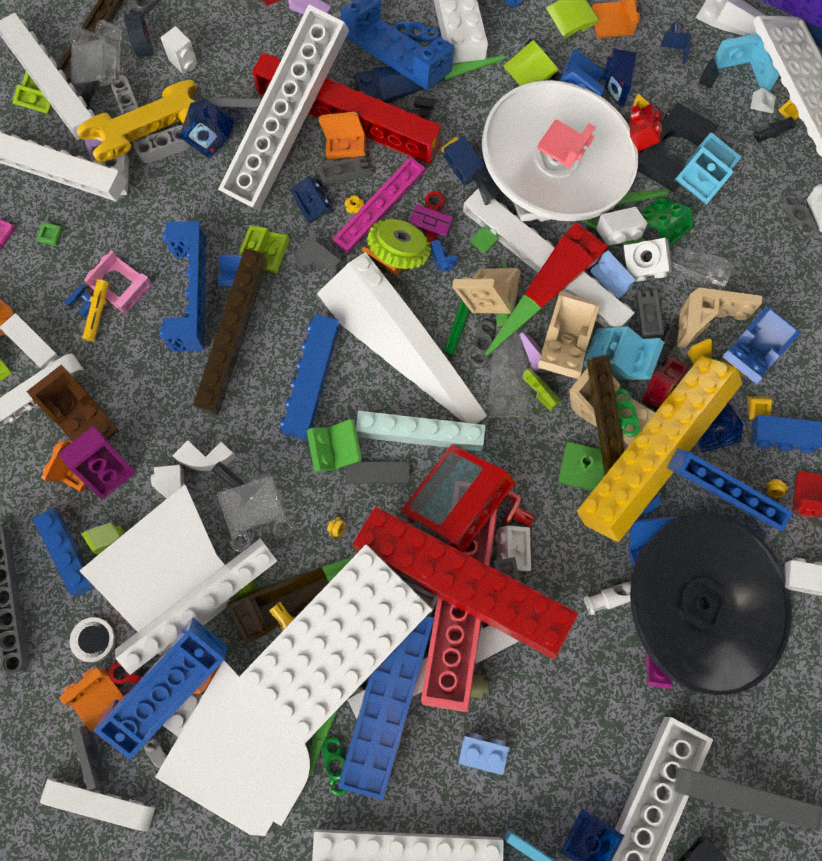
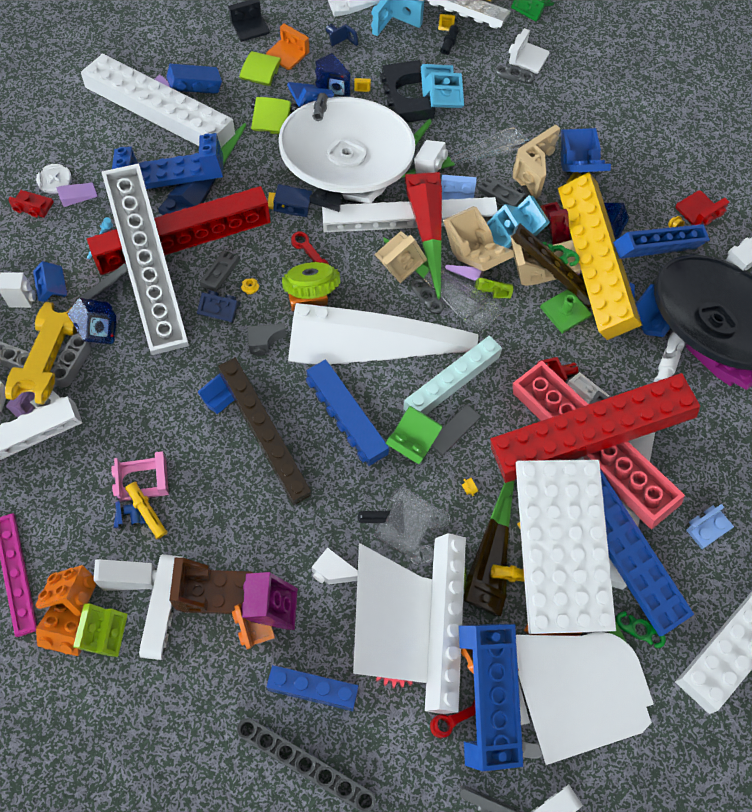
camera: 50 degrees left, 10 degrees down
(49, 234) = (48, 494): bright green tile -> none
(91, 696) = (446, 762): orange bracket -> none
(92, 639) = (397, 726): tile -> none
(102, 536) = (332, 648): lime slope -> none
(187, 332) = (166, 401): blue plate -> none
(195, 460) = (331, 536): white brick -> none
(215, 64) = (49, 281): none -> blue panel
(266, 242) = (209, 360): lime slope -> none
(343, 135) = (197, 247): orange bracket -> none
(379, 205) = (267, 273): dark pink plate -> none
(423, 36) = (177, 151): blue piece -> none
(424, 105) = (227, 188): black tile -> none
(431, 220) = (314, 250): magenta tile -> none
(440, 257) = (344, 268): blue bracket -> none
(456, 329) = (400, 298): green axle -> none
(458, 496) = (524, 388): panel -> none
(484, 240) = (357, 236): bright green tile -> none
(566, 143) = (350, 135): coral bracket -> none
(572, 96) = (320, 107): none -> dark grey pin
(645, 126) = (381, 91): red brick -> none
(657, 266) = (477, 156): white brick -> none
(669, 218) = (451, 131): green bracket -> none
(700, 349) = (552, 188): yellow slope -> none
(709, 74) = (378, 39): black slope -> none
(759, 406) = (616, 190): yellow slope -> none
(763, 101) = (424, 30): white slope -> none
(786, 434) = (647, 190): blue brick -> none

